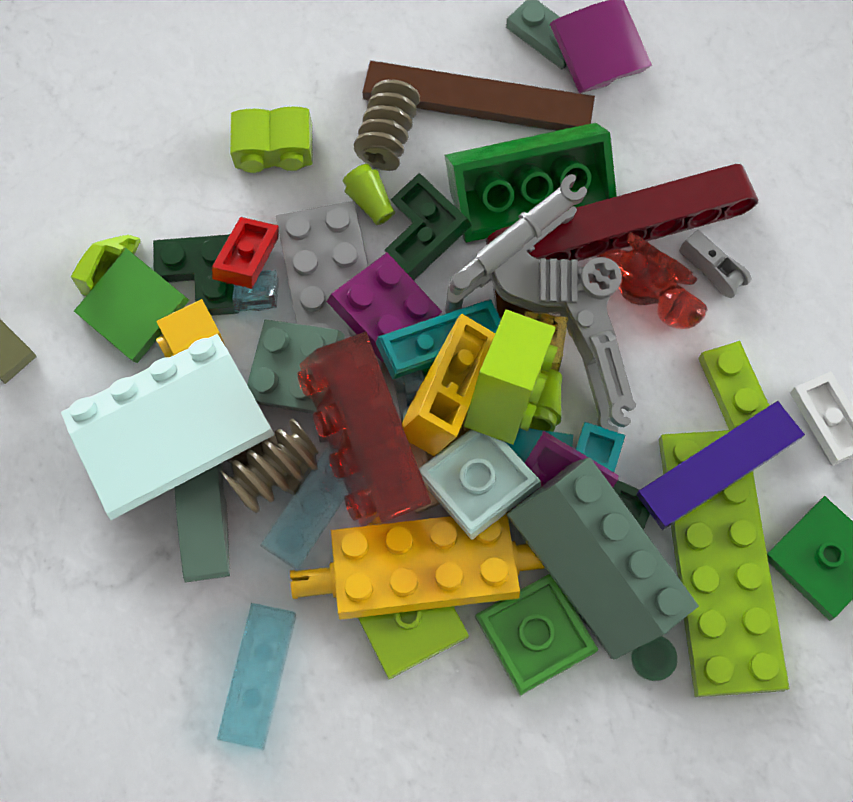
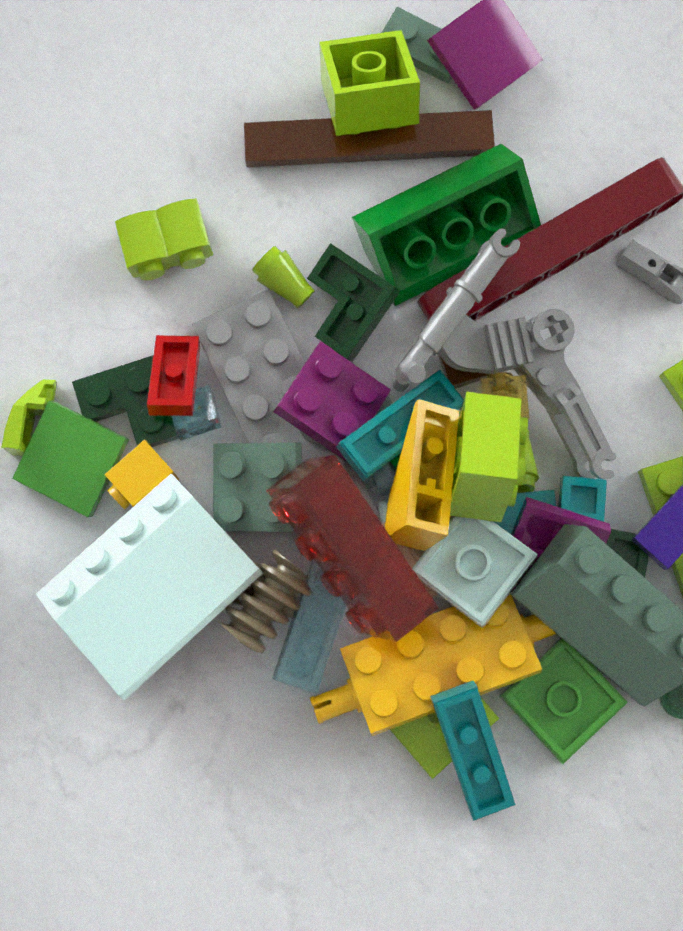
camera: 10 degrees left, 10 degrees up
(203, 526) = (214, 680): sand green slope -> none
(257, 676) = (304, 807): clear light blue plate -> none
(386, 124) = (278, 194): dark tan piece -> none
(434, 656) = (473, 750): none -> teal tile
(489, 47) = (369, 82): none -> lime brick
(654, 279) = (597, 306): clear red animal -> none

